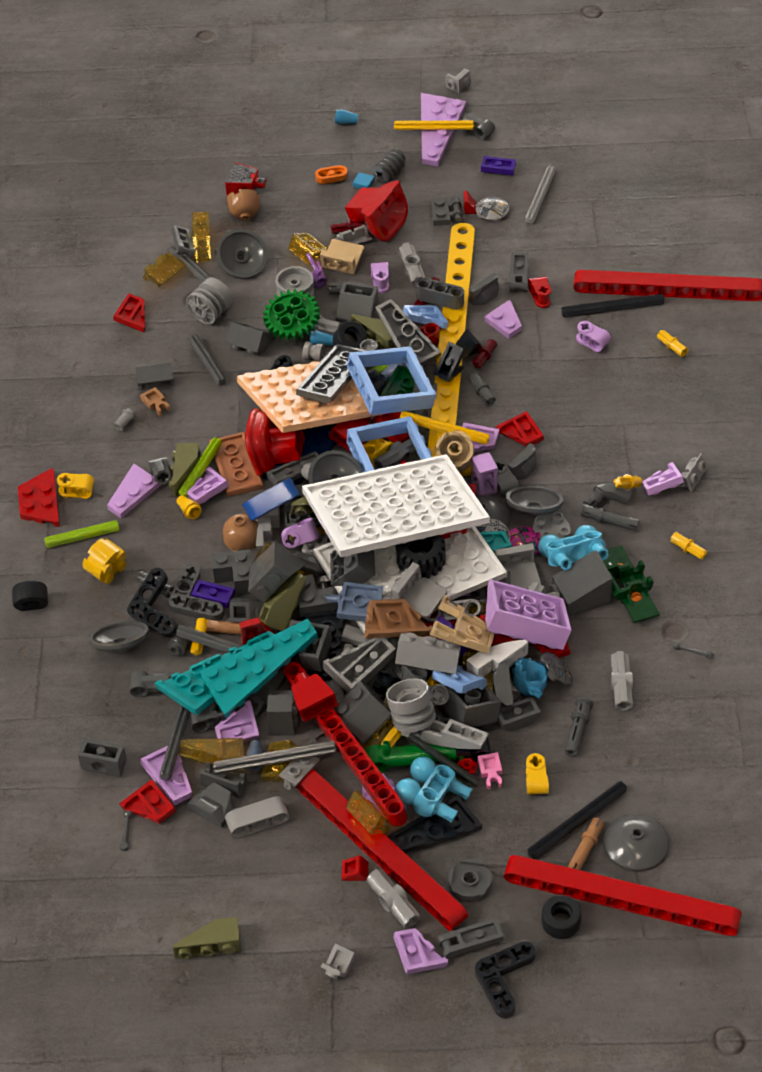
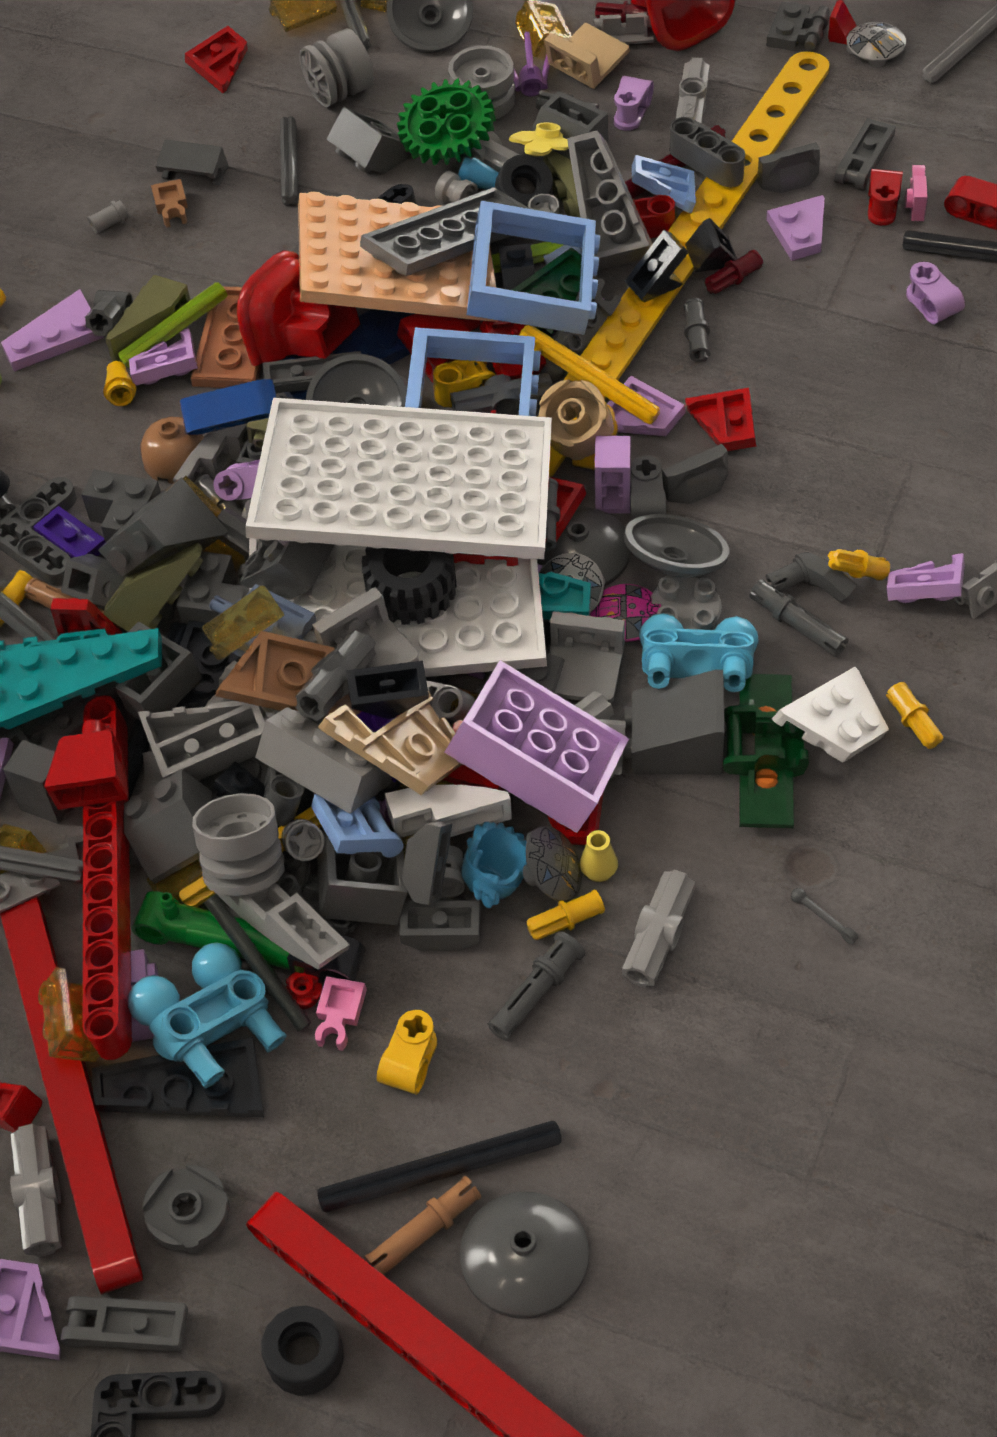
camera: 25 degrees right, 5 degrees up
(350, 310) = (542, 140): none -> light yellow plate
(357, 600) = (242, 622): none -> clear yellow bracket
(418, 610) = (329, 675): none -> dark grey piece
(449, 607) = (387, 688): none -> black slope
(558, 286) = (917, 194): none -> bright pink plate
(574, 690) = (565, 915): none -> yellow axle
(576, 659) = (598, 858): none -> light yellow cone
(656, 556) = (837, 716): none -> white wing

